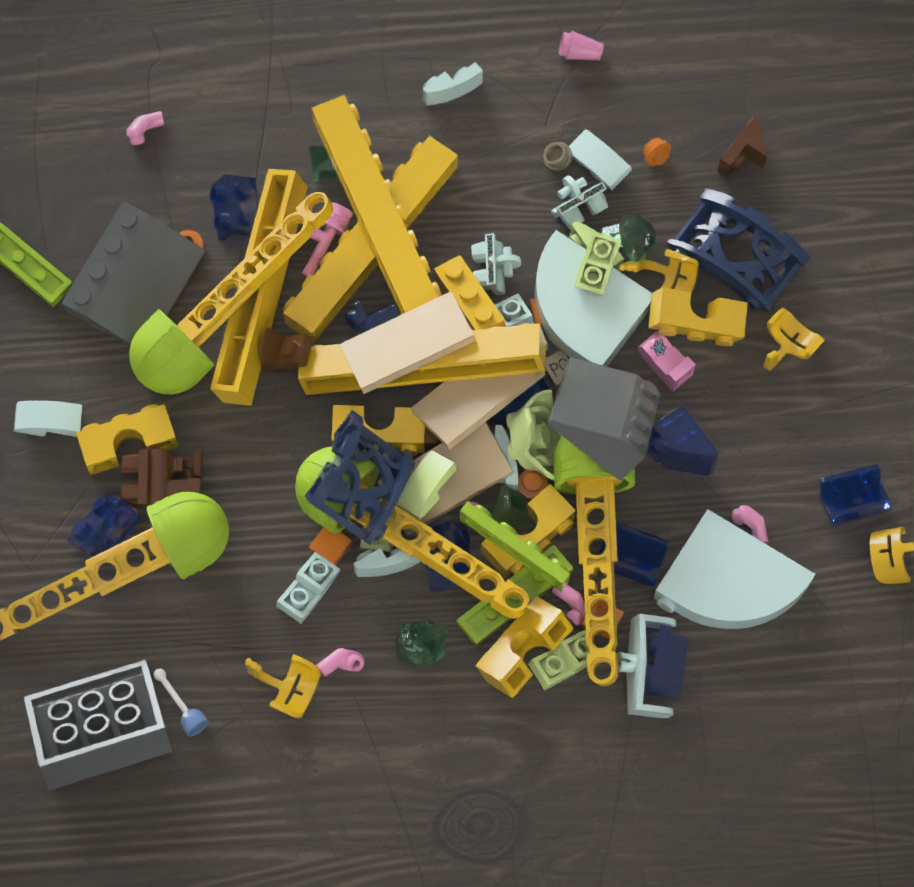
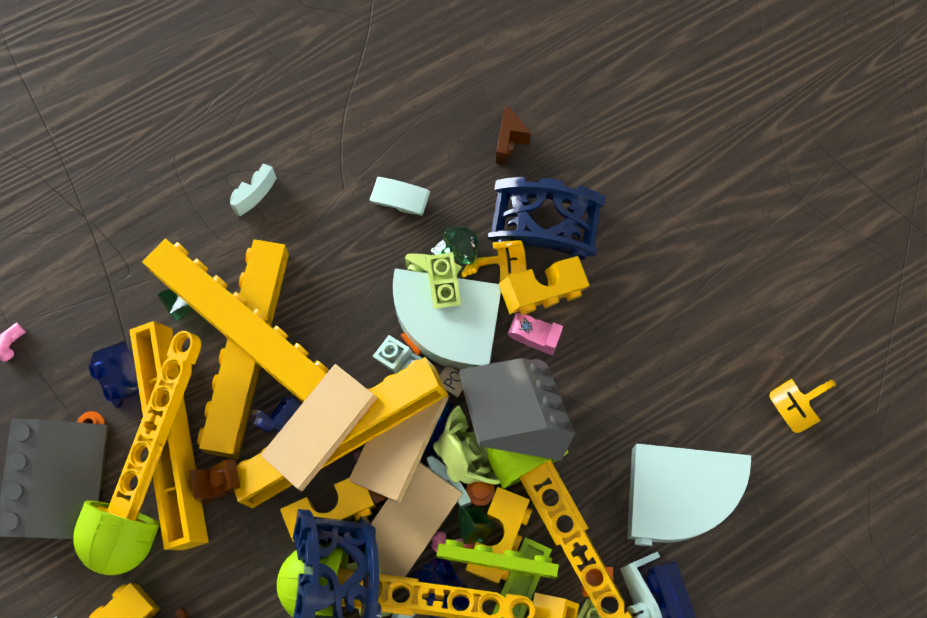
camera: 25 degrees left, 0 degrees up
(334, 225) = (209, 348): bright pink piece -> none
(421, 489) = (393, 540): yellowish green slope -> none
(470, 296) = (357, 362): yellow arch -> none
(498, 263) = (351, 312): light aqua hips -> none
(557, 156) = (365, 208): dark tan plate -> none
(575, 602) = (571, 580): bright pink arm -> none
(579, 47) = (340, 115): bright pink cone -> none
(592, 197) = (409, 228): light aqua hips -> none
(638, 554) = (599, 509): clear blue bracket -> none
(656, 152) = (442, 169): orange plate -> none
(682, 444) = (589, 397): clear blue slope -> none
(753, 520) = (672, 432): bright pink arm -> none
(786, 322) = (633, 262): yellow helmet -> none
(854, 494) = (741, 372): clear blue bracket -> none

